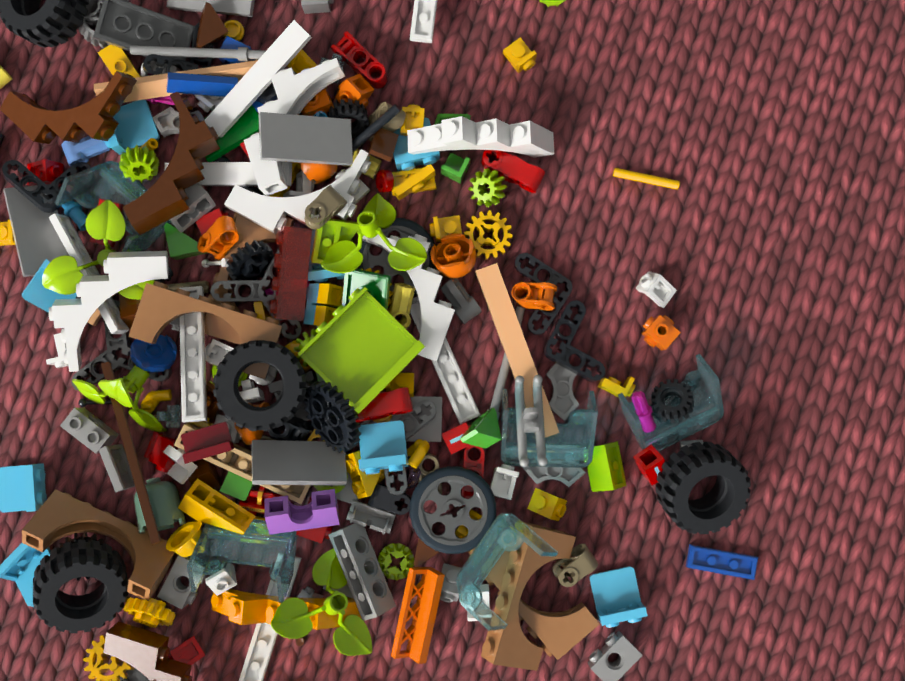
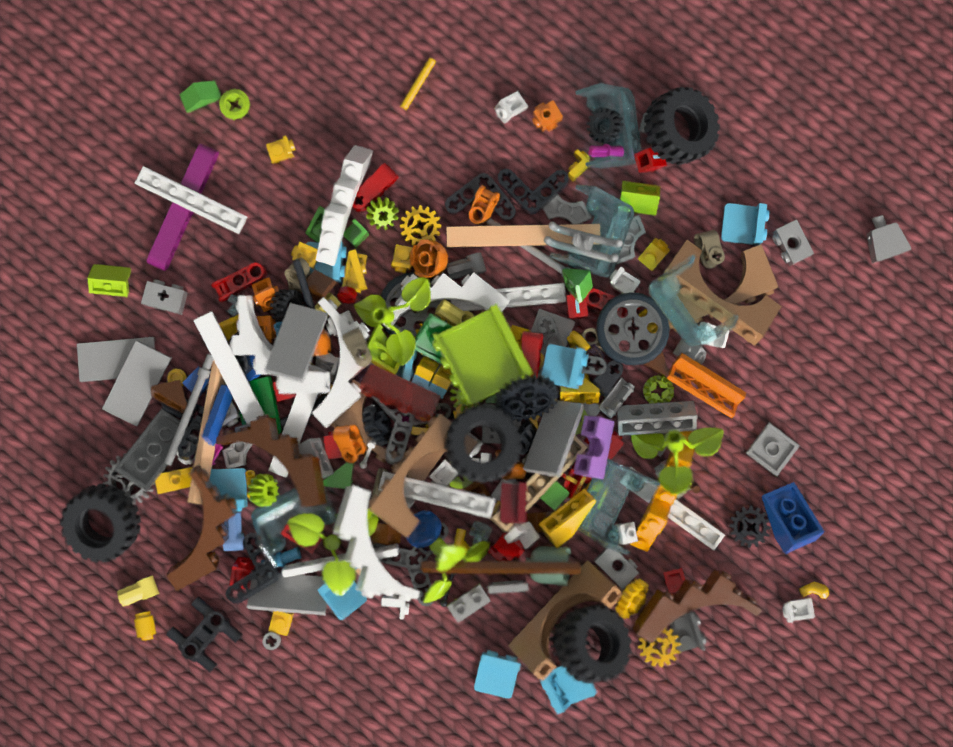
camera: 70 degrees left, 0 degrees up
(185, 539) = (584, 549): yellow piece -> none
(721, 562) = (745, 132): blue tile -> none

